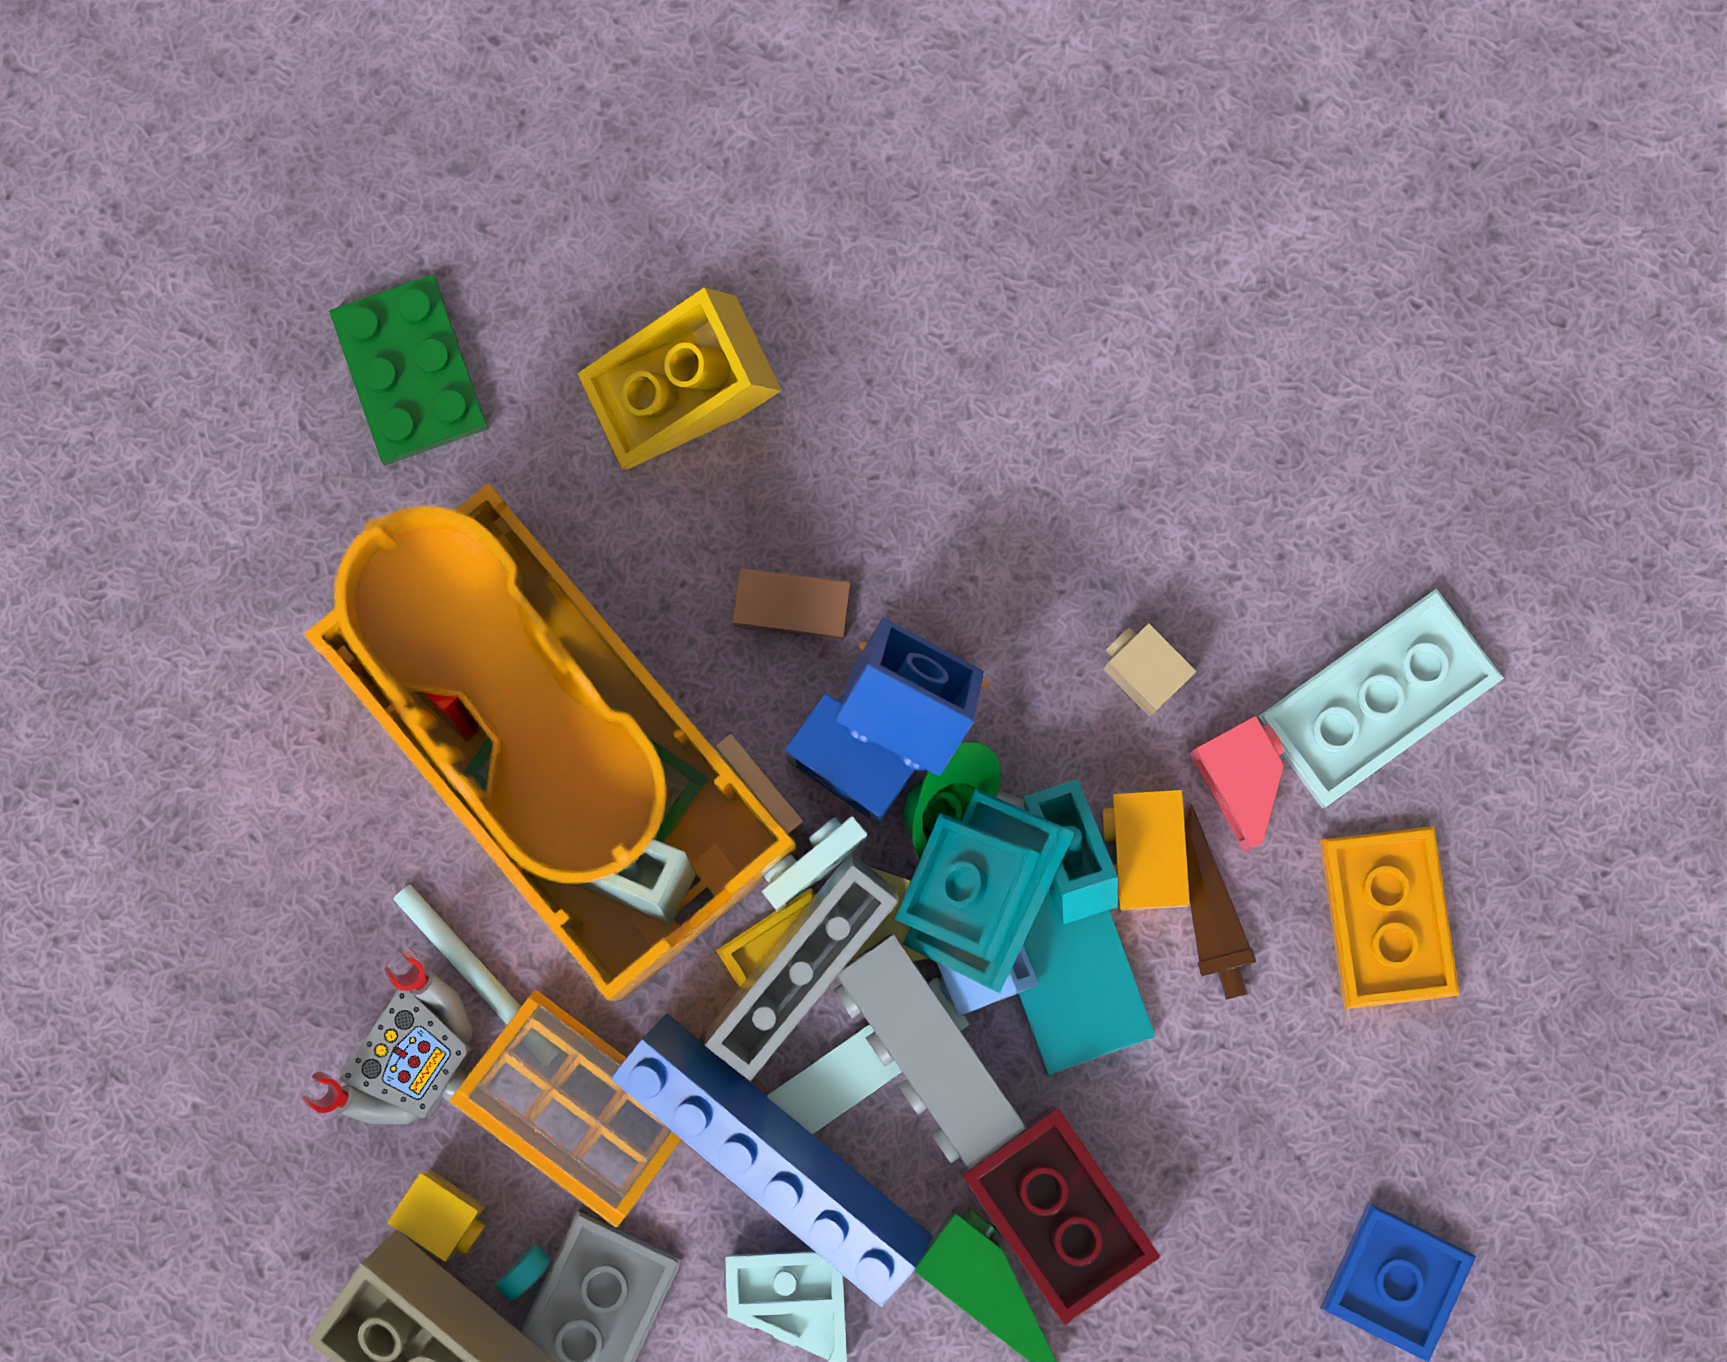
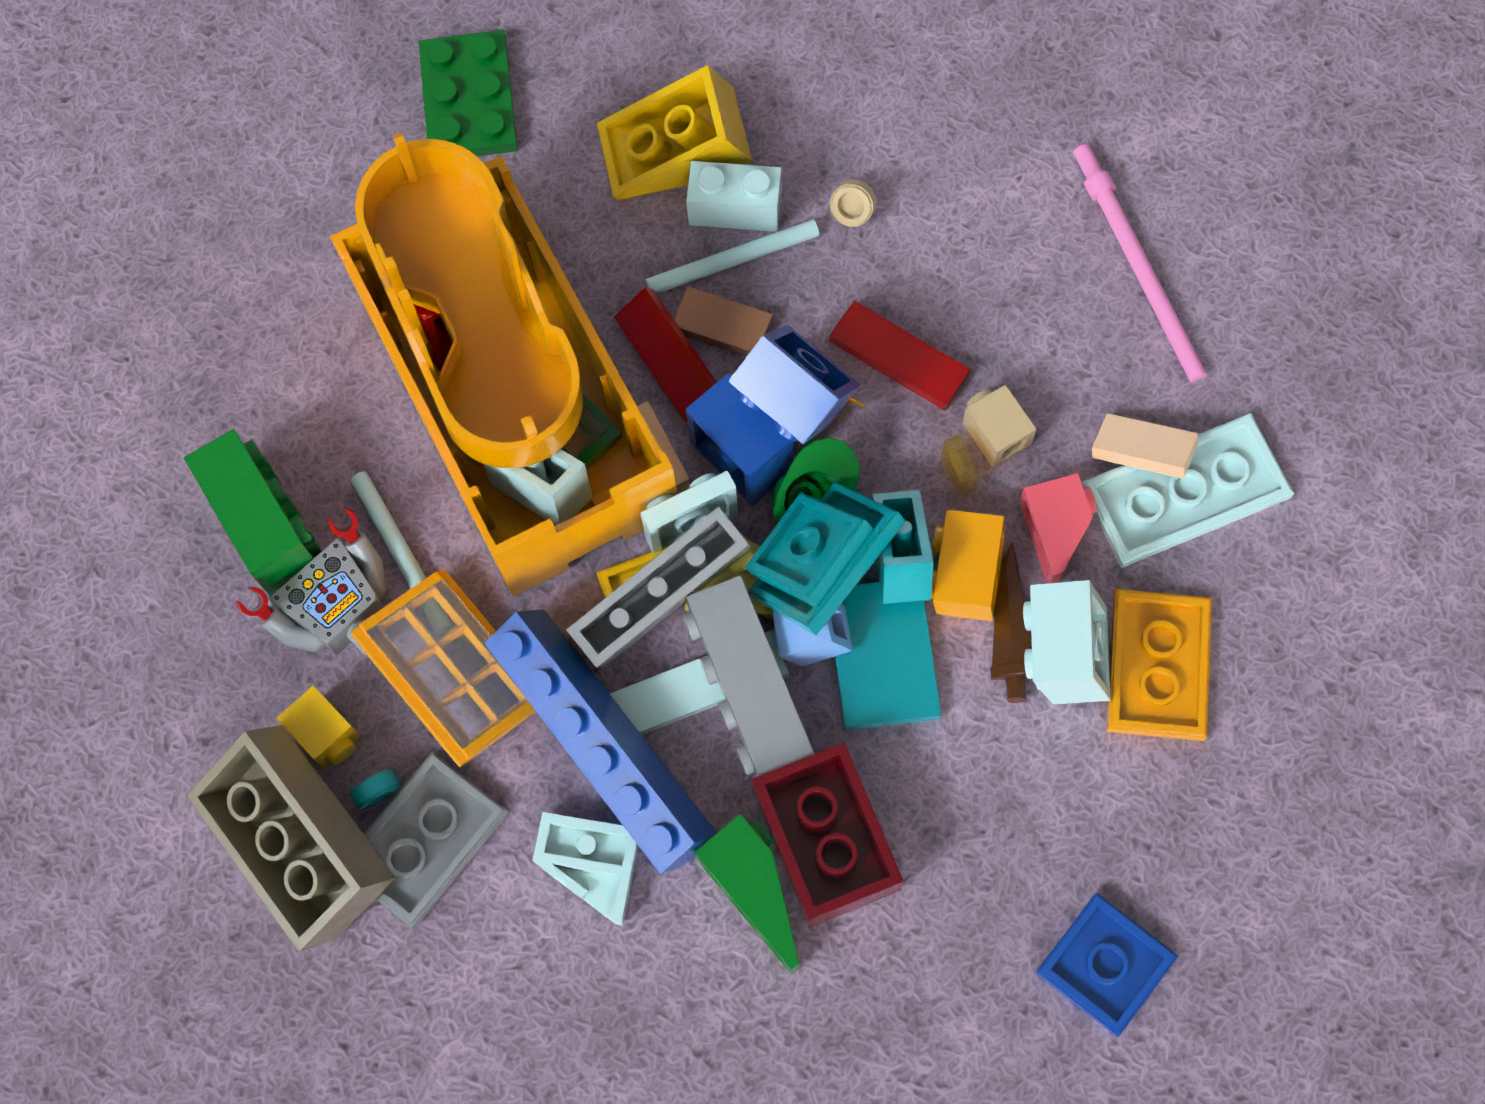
camera: 20 degrees right, 10 degrees down
(293, 977) = (253, 509): none -> green brick
(738, 661) = (665, 350): none -> red tile
(771, 442) = (734, 196): none -> light aqua brick
(784, 516) = (733, 257): none -> light aqua bar
(915, 419) = (853, 202): none -> tan tile
(1011, 601) = (899, 355): none -> red tile
(1113, 729) = (959, 465): none -> clear yellow tile
(1206, 336) = (1102, 188): none -> bright pink bar
(1286, 929) = (1068, 642): none -> light aqua brick
(1323, 658) = (1145, 445): none -> light nougat tile

